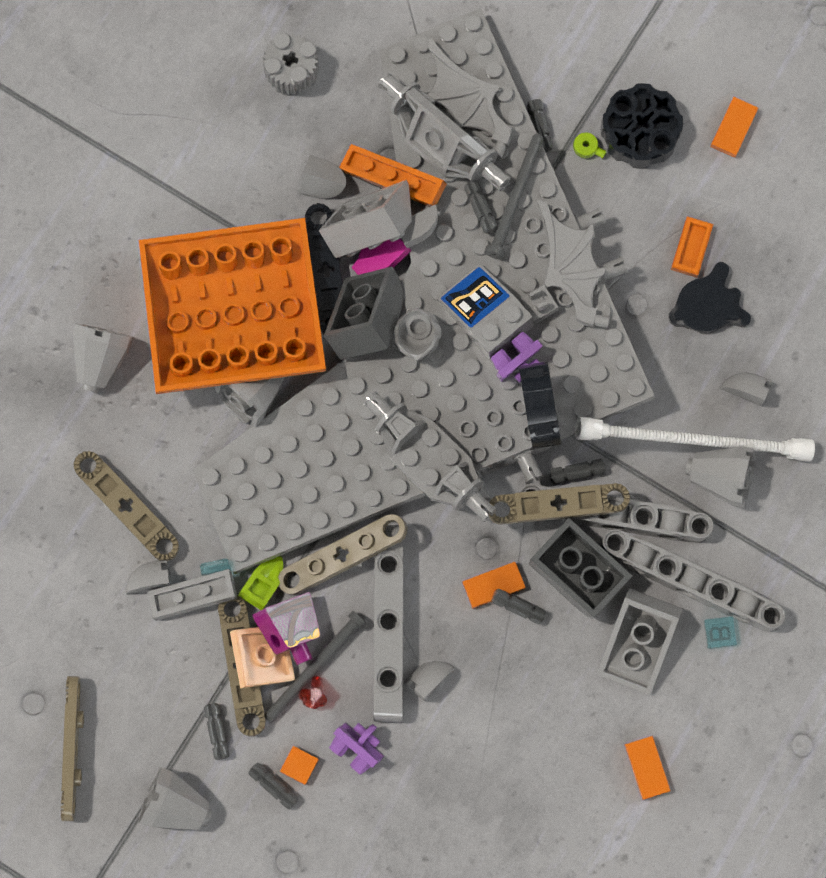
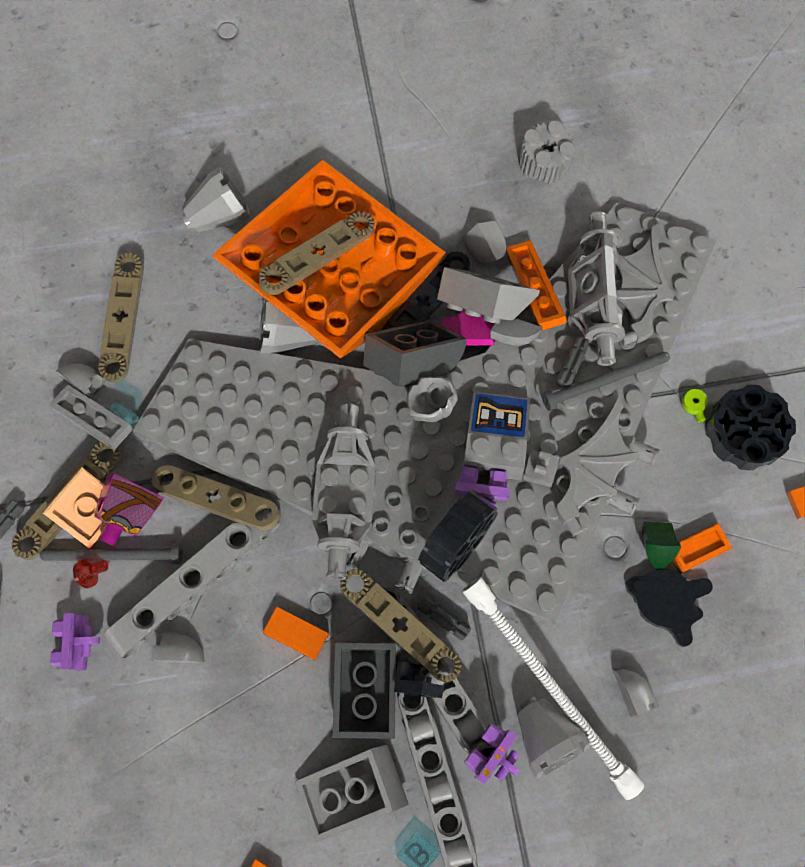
camera: 45 degrees right, 5 degrees down
(225, 332) = (302, 262): none -> dark tan piece
(262, 583) = (145, 459): lime plate -> none
(299, 765) = (23, 611): orange tile -> none
(518, 606) = (294, 668): dark grey axle -> none
(539, 121) = (676, 355): dark grey axle -> none
(606, 531) = (411, 682): none -> black bracket
(664, 271) = (660, 543): none -> dark green tile
(705, 531) = (484, 766): none -> medium lavender hips

